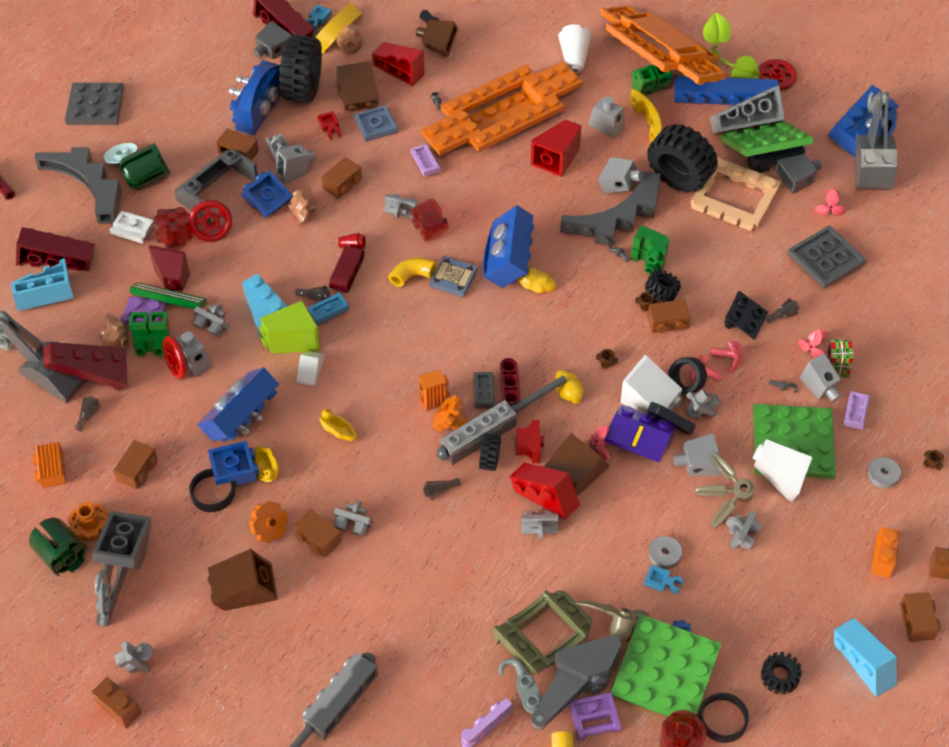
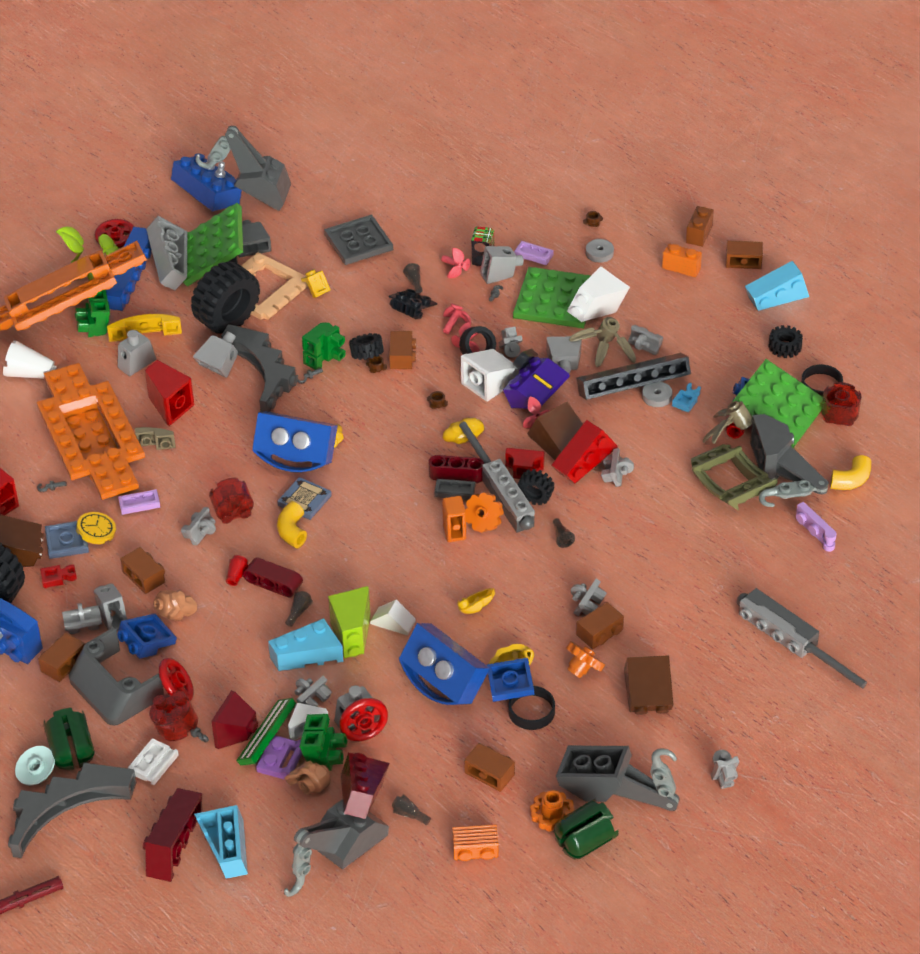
camera: 80 degrees left, 10 degrees down
(116, 702) = (769, 789): dark orange brick -> none
(180, 318) = (298, 719): none -> white slope
(328, 308) = (319, 594): dark azure plate -> none
(387, 137) = (96, 527): none -> yellow tile
(503, 154) = (155, 436): none -> dark tan slope
(592, 709) = (808, 452): medium lavender plate -> none
(678, 523) = (633, 376): none -> black brick
(746, 232) = (316, 282): none -> yellow bracket
(831, 198) = (299, 223): coral plant -> none

